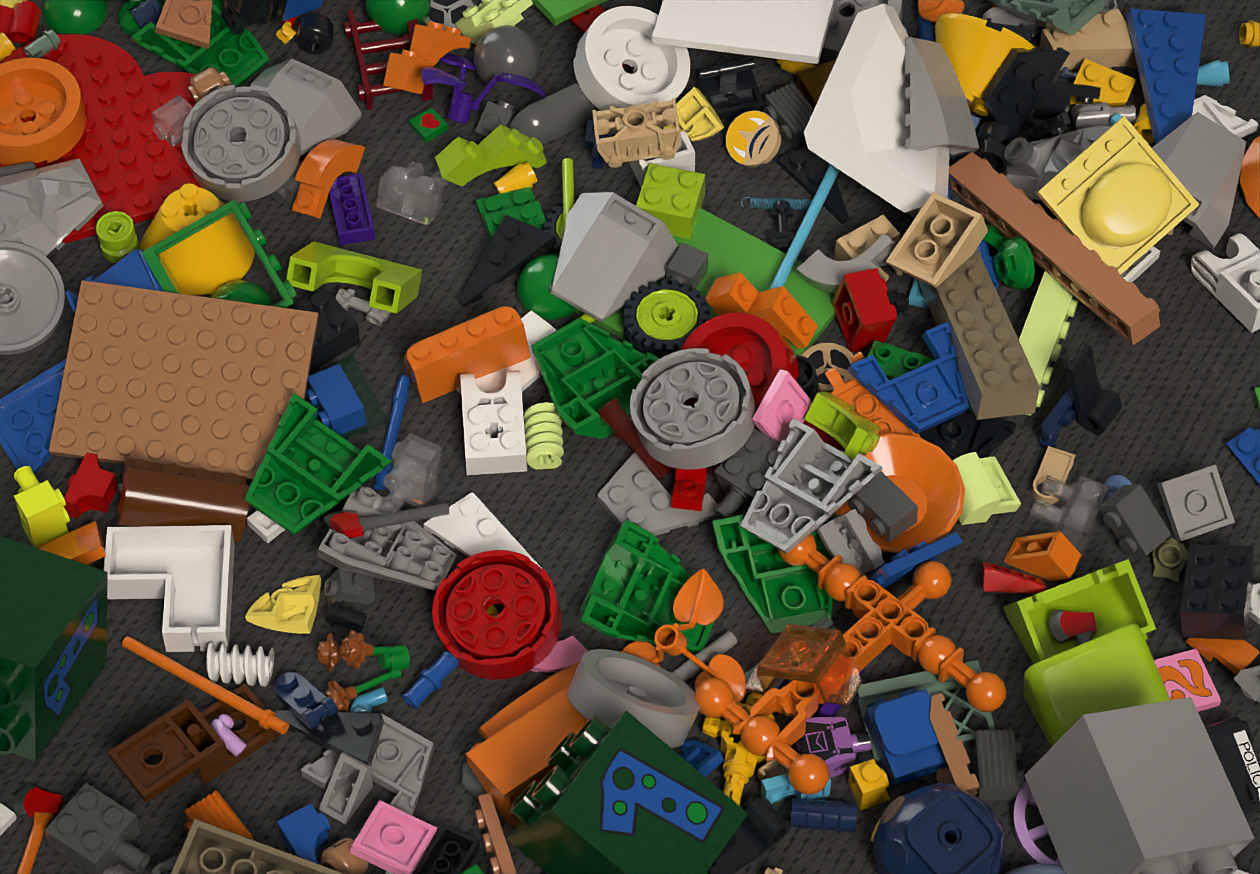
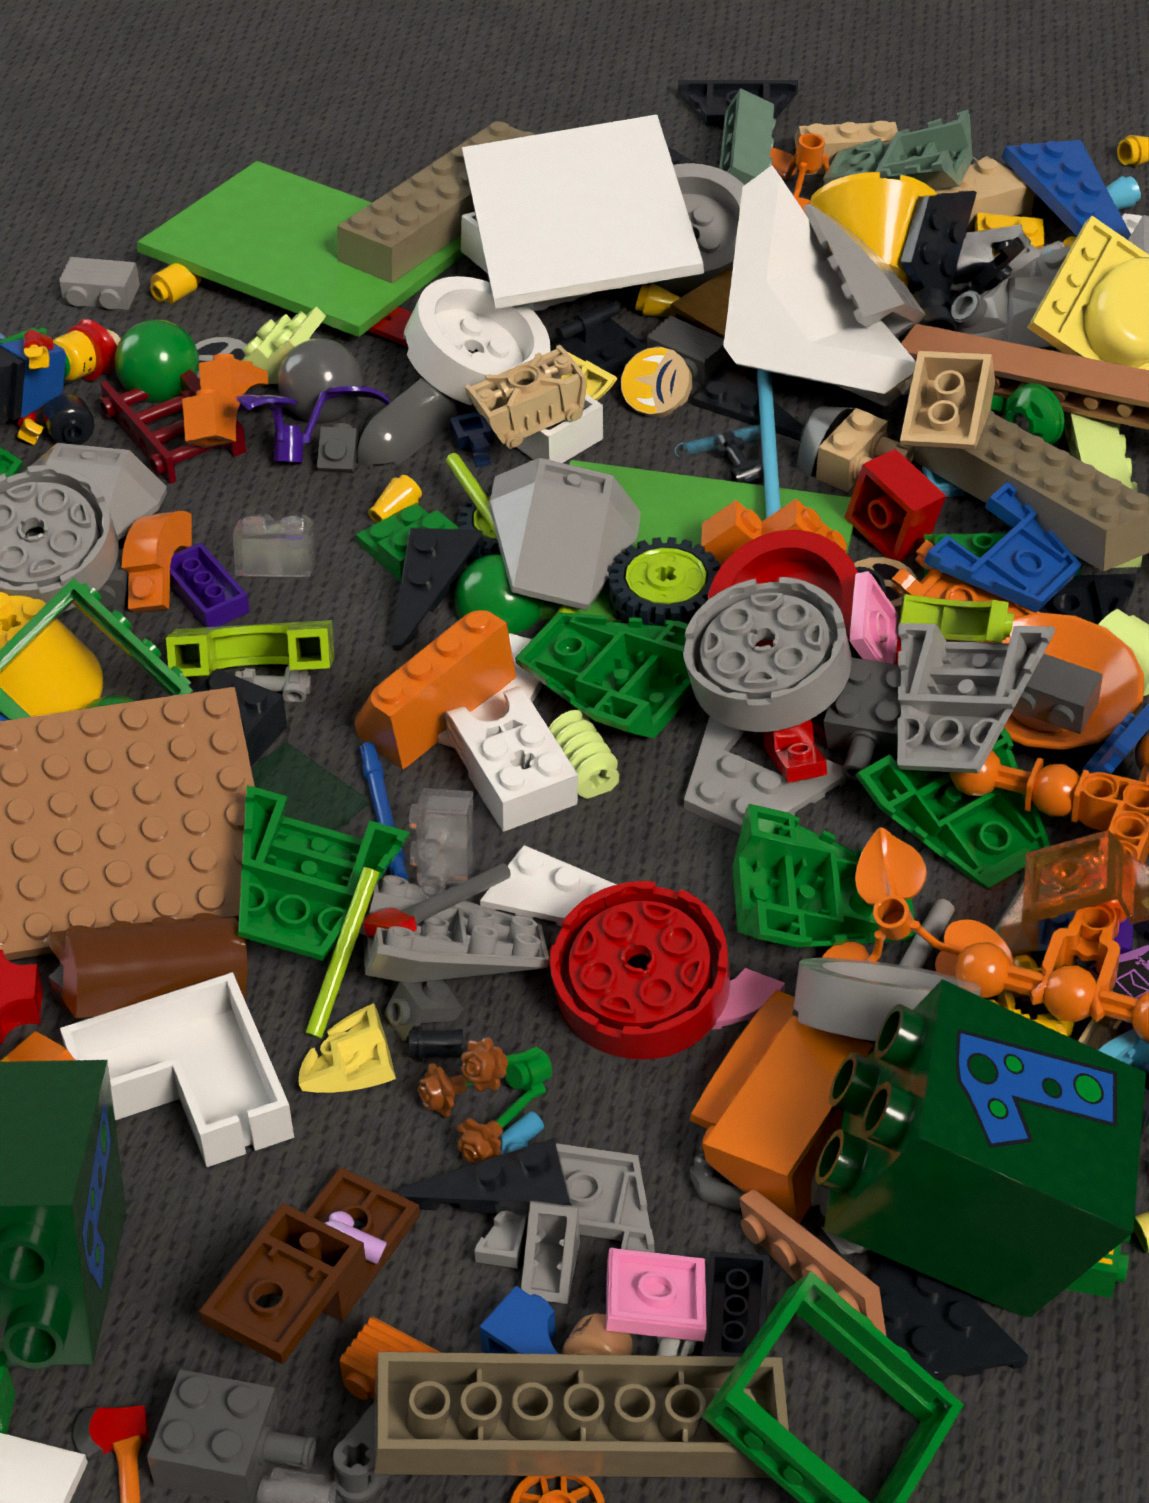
camera: 20 degrees left, 10 degrees down
(239, 665) = (321, 1145): white piece -> none
(264, 526) = (272, 965): white plate -> none
(266, 718) = (396, 1197): orange bar -> none
(303, 699) = (435, 1158): dark blue plate -> none
(309, 534) = (342, 952): none -> lime bar
(335, 400) = (310, 793): blue brick -> none
(428, 125) = (255, 477): green tile -> none
(430, 680) = (589, 1081): blue pin -> none
(501, 148) = (364, 467): lime arch -> none
(625, 429) = (685, 712): clear red pin -> none
(673, 198) = (603, 449): lime brick -> none
(687, 266) = (658, 519): dark grey brick -> none
(827, 273) = (832, 482): light grey arch -> none
(846, 220) = (819, 423): none -> dark grey piece
(850, 539) = (1041, 734): light grey bracket -> none

